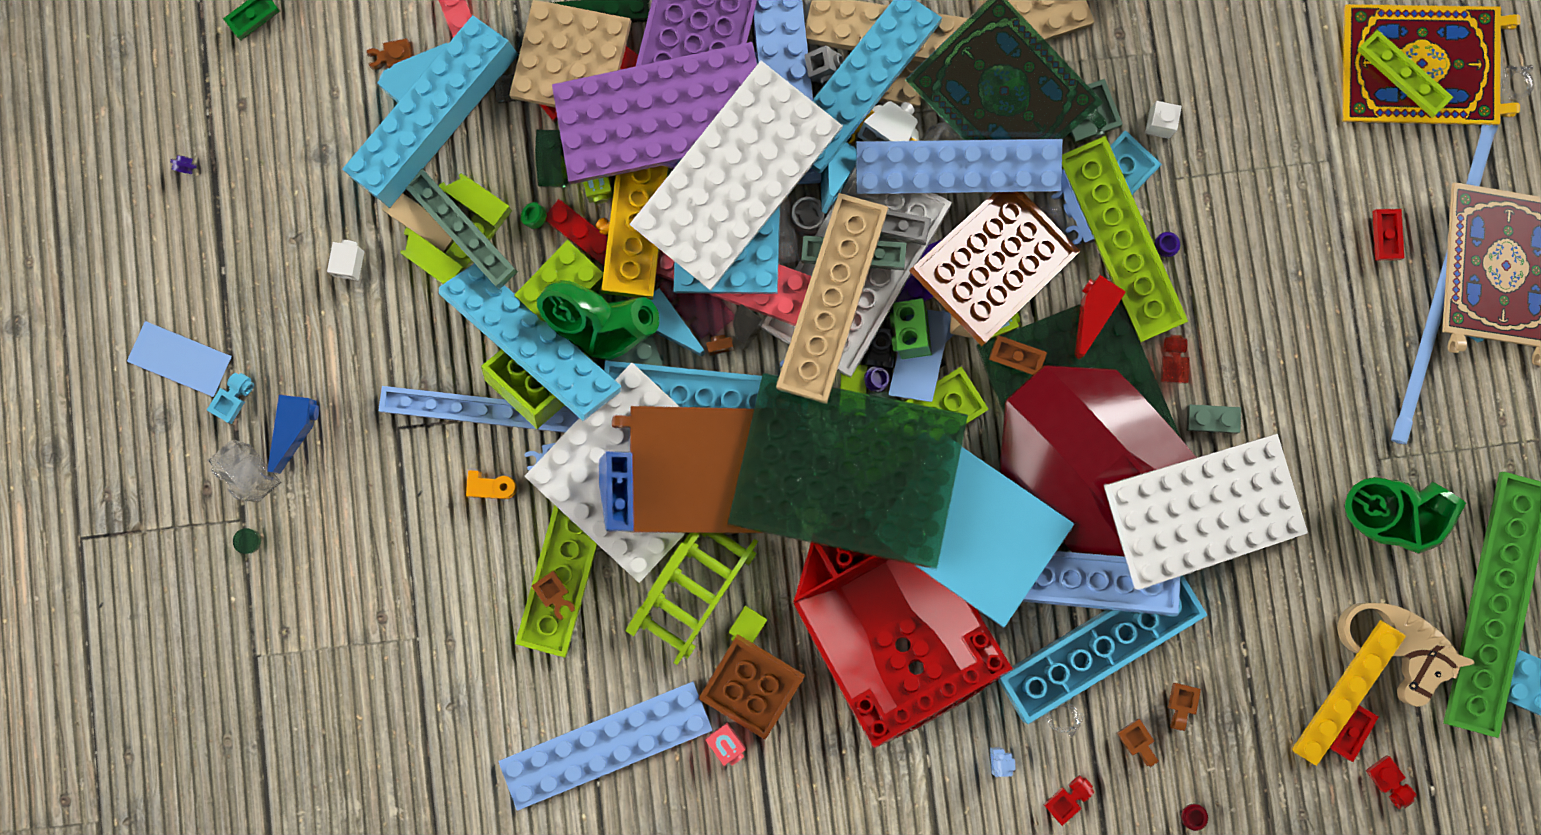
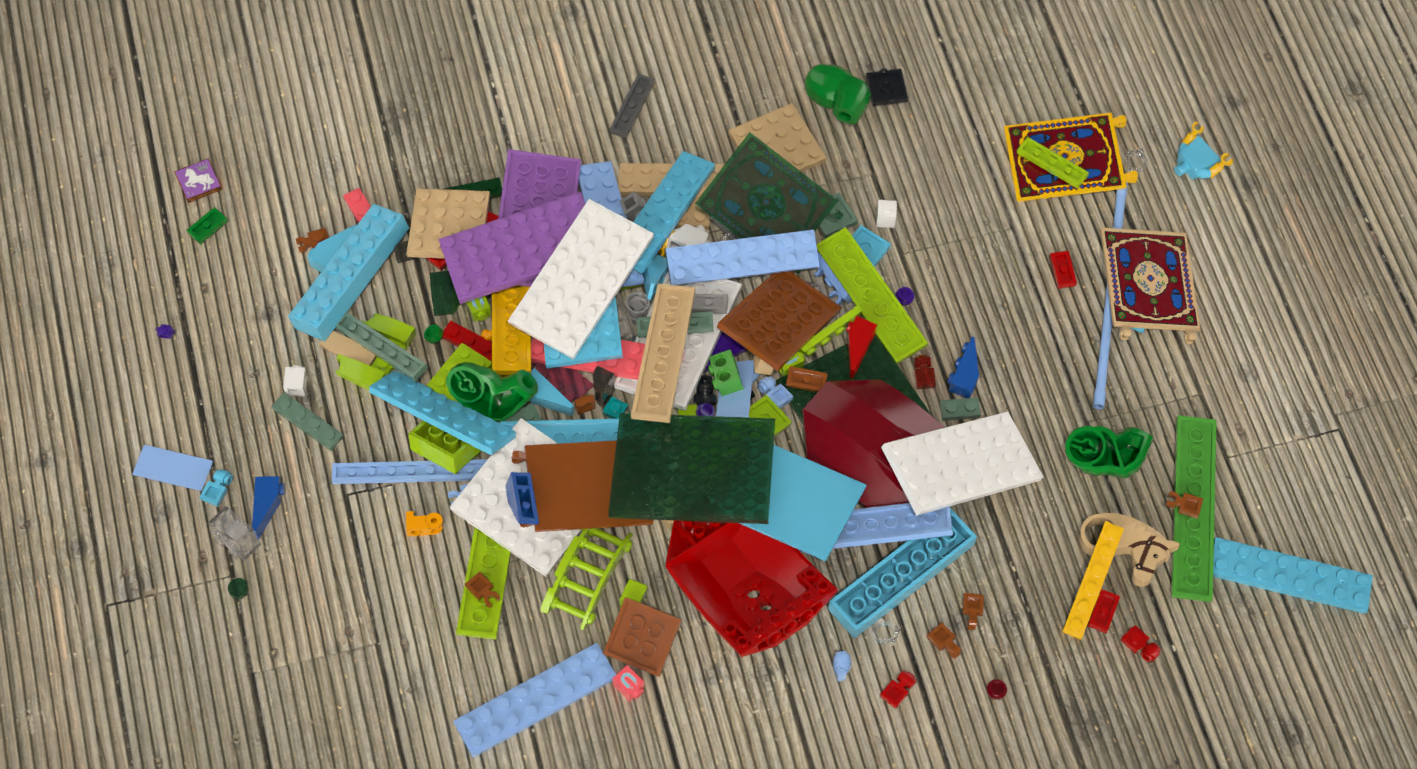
camera: 10 degrees left, 20 degrees down
(357, 318) = (307, 421): none -> sand green plate
(759, 356) = (614, 408): none -> teal plate
(976, 368) = (777, 394): none -> light blue plate
(1069, 281) = (833, 329): none -> lime plate
(1233, 370) = (967, 374): none -> blue slope
(1493, 604) = (1187, 504): none -> dark orange plate

